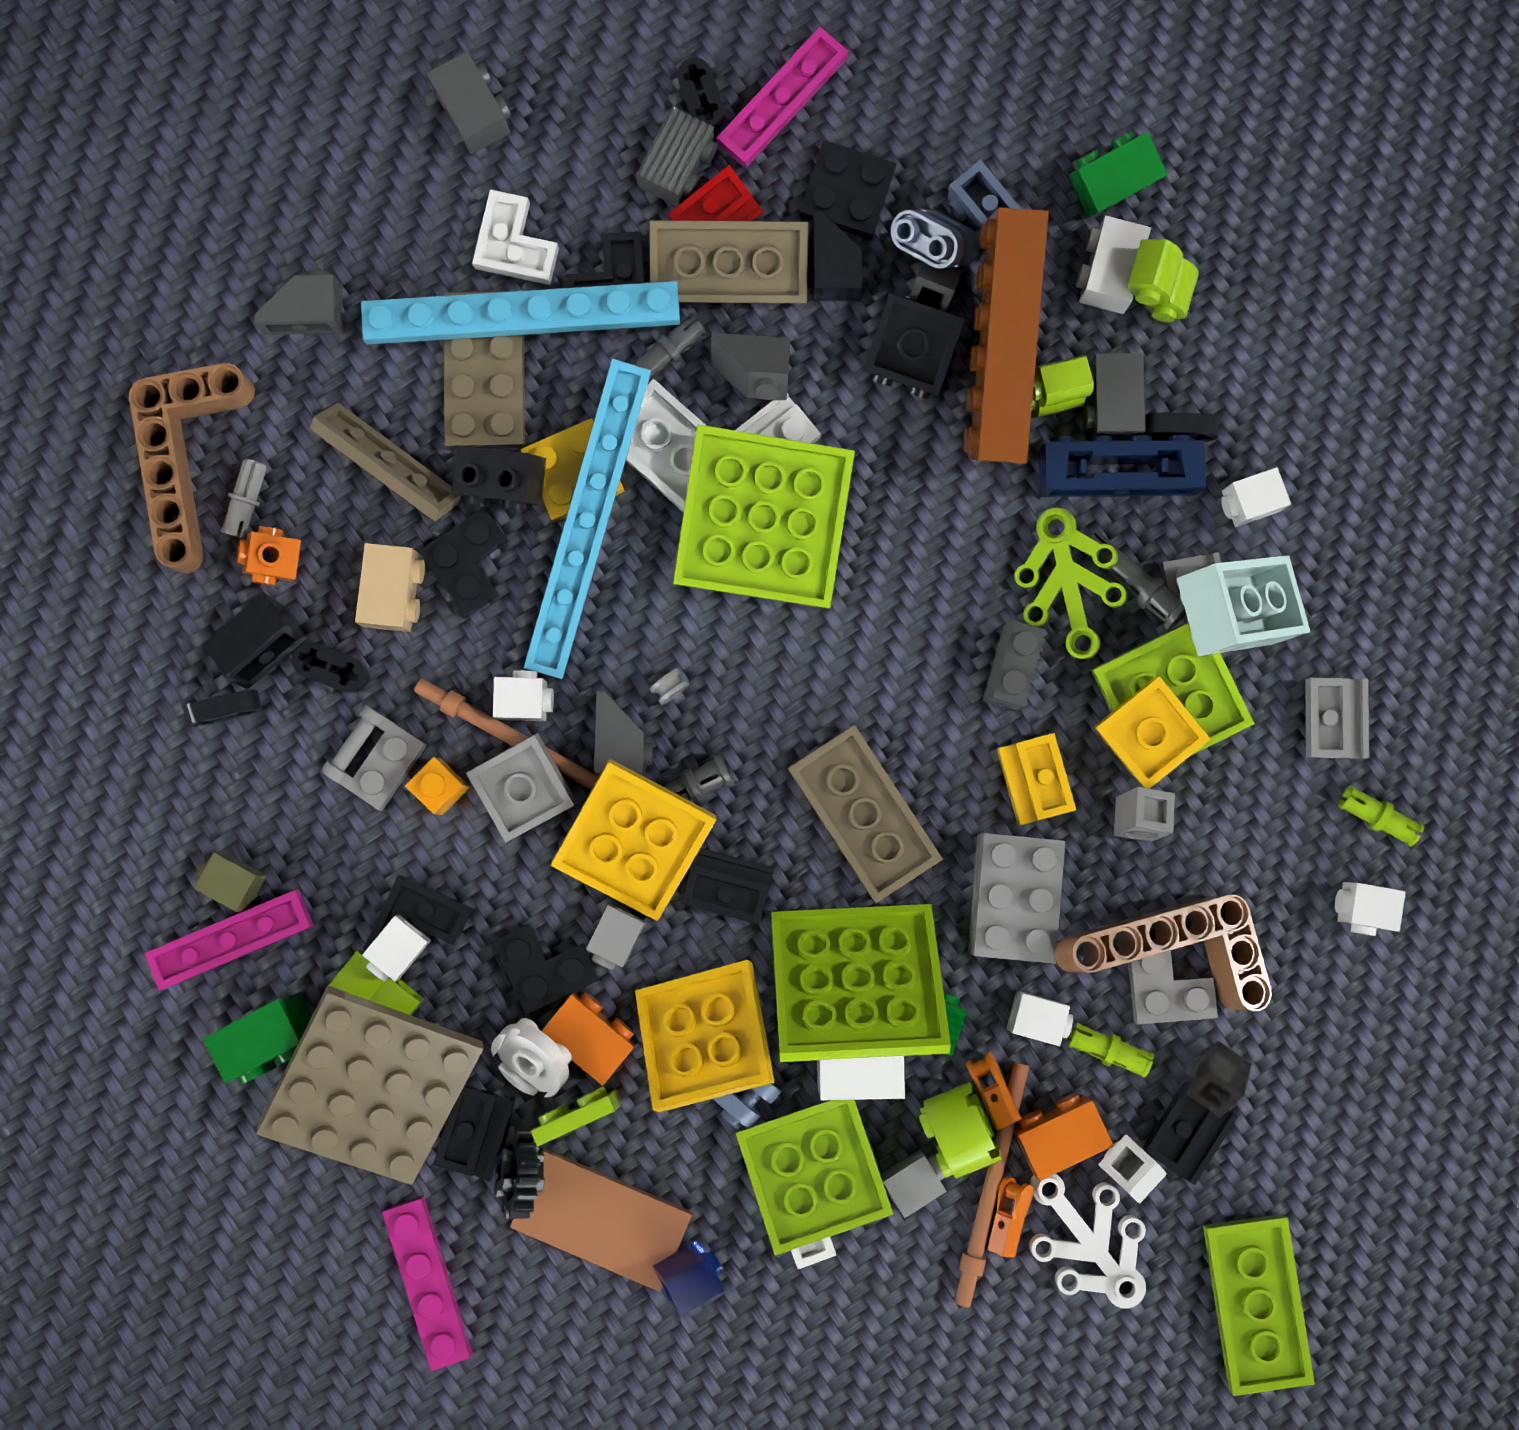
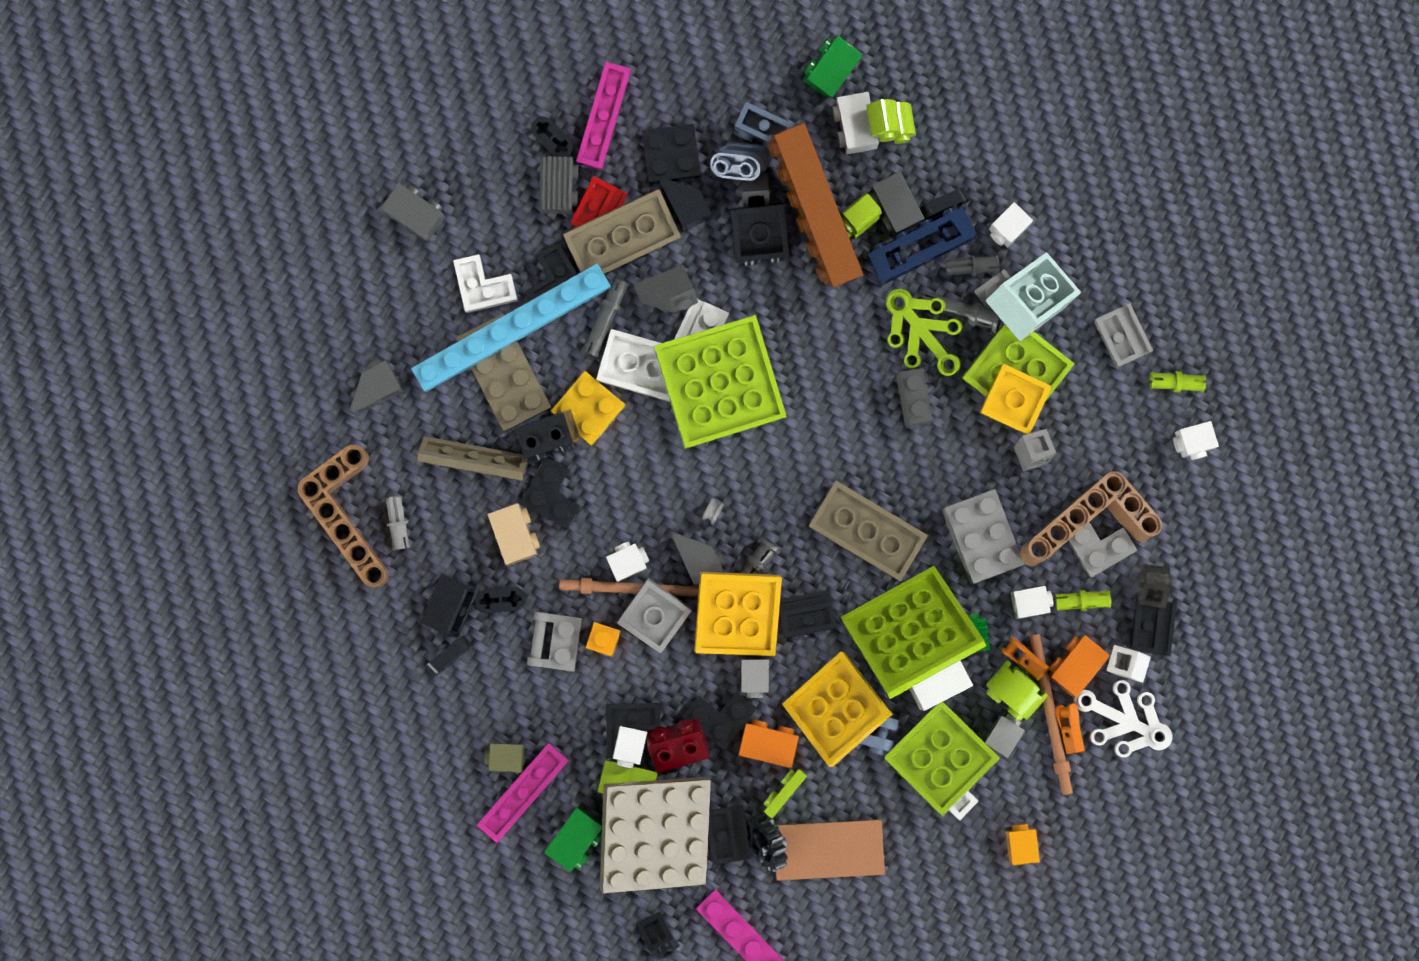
camera: 20 degrees left, 0 degrees up
(283, 552) = (432, 550): orange brick -> none
(311, 1224) = (658, 936): none -> black bracket
(465, 978) = (677, 745): none -> dark red brick
(531, 1058) = (752, 768): white plate -> none
(587, 518) = (614, 434): medium azure plate -> none
(690, 1277) = (898, 856): clear blue brick -> none
(866, 1346) = (1022, 844): none -> light orange brick
(1036, 779) = (960, 460): yellow plate -> none
(1178, 527) = (972, 265): none -> dark grey axle
(1258, 1304) = (1241, 708): lime plate -> none

